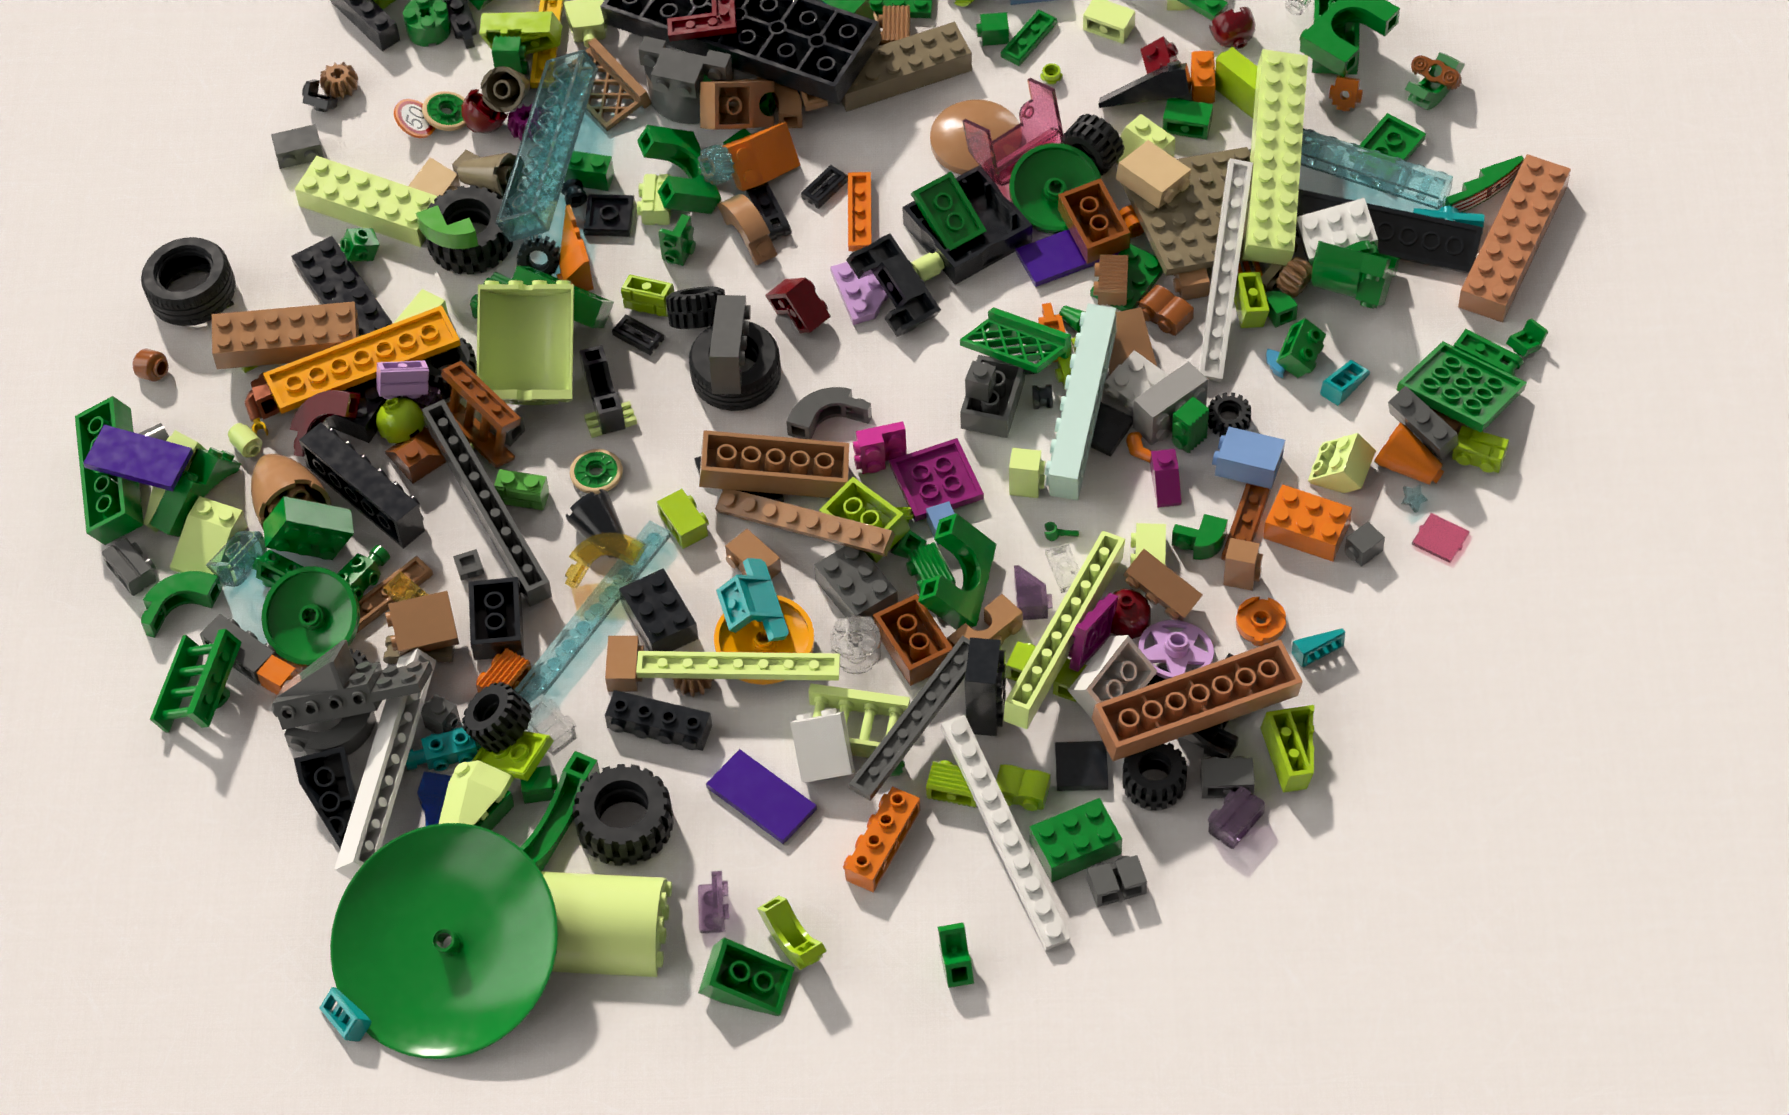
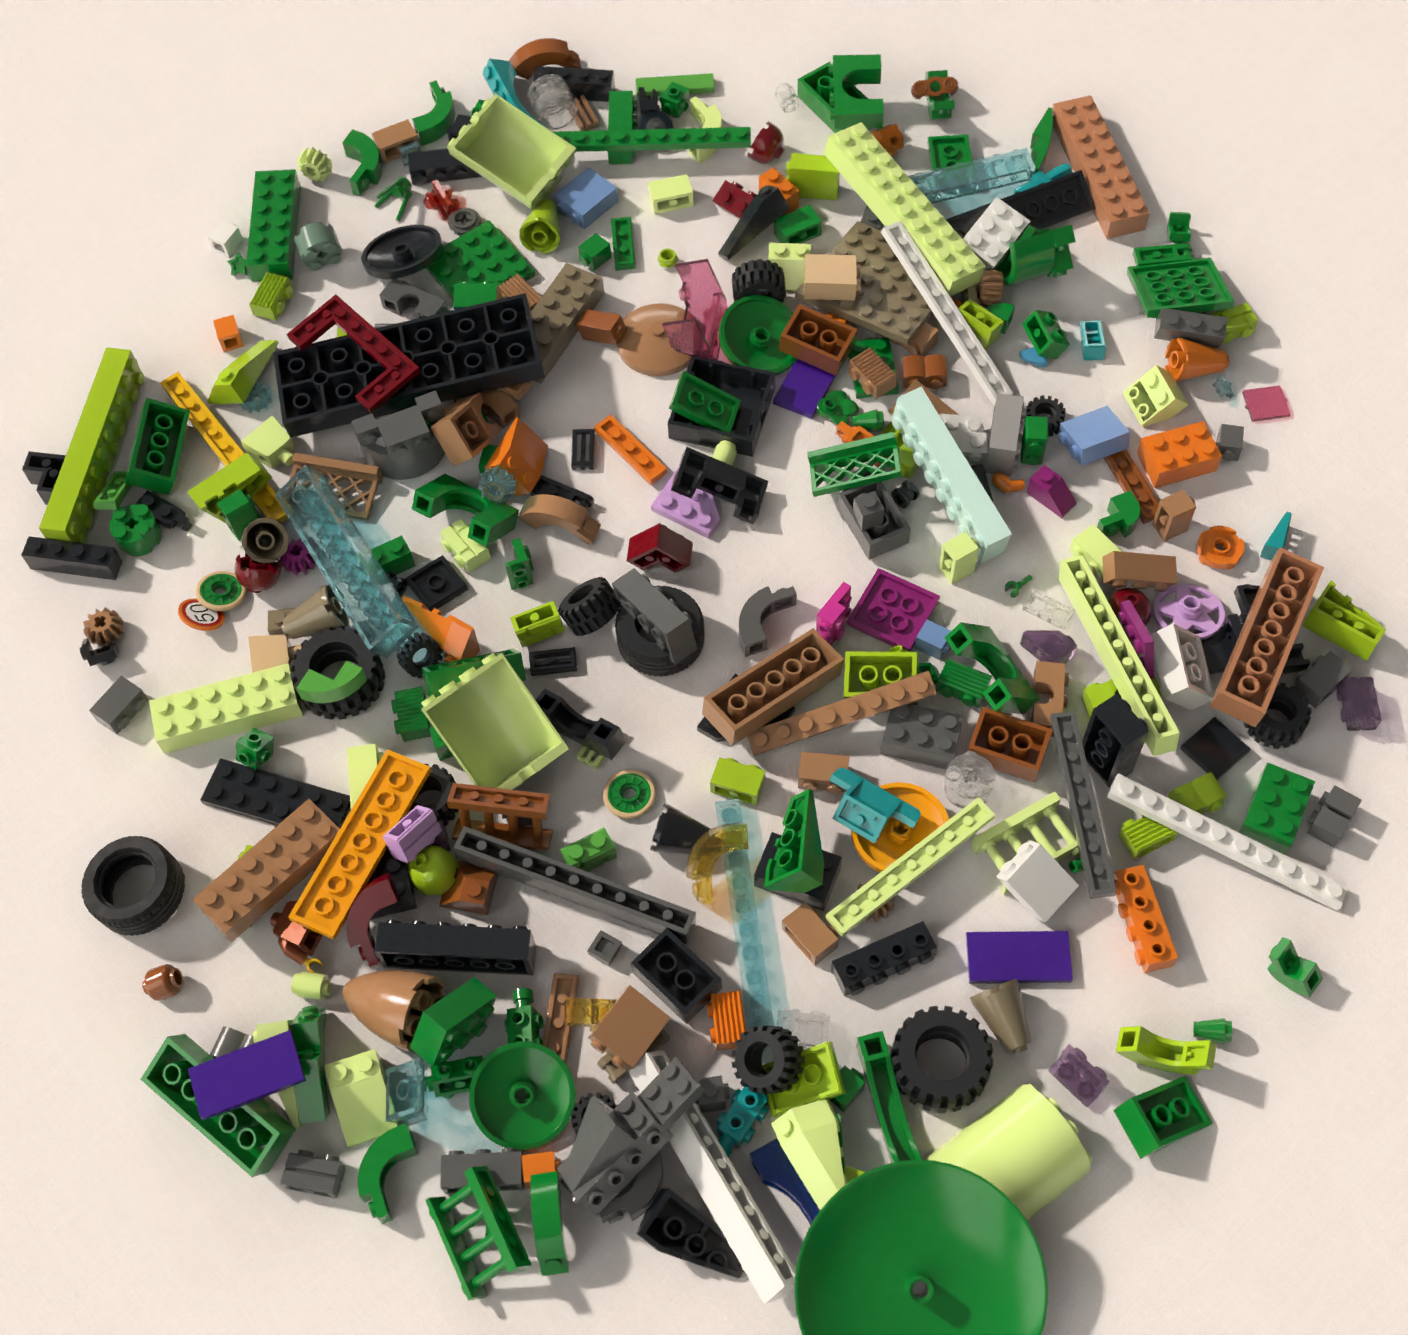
camera: 40 degrees left, 5 degrees up
(241, 709) = (548, 1223): none -> green arch
(656, 598) = (799, 854): none -> green wedge
(702, 820) = (1005, 1015): none -> dark tan cone
(851, 955) = (1215, 1030): none -> green cone
(934, 95) = (601, 327): none -> dark orange brick
(1066, 292) = (837, 407): none -> green plate

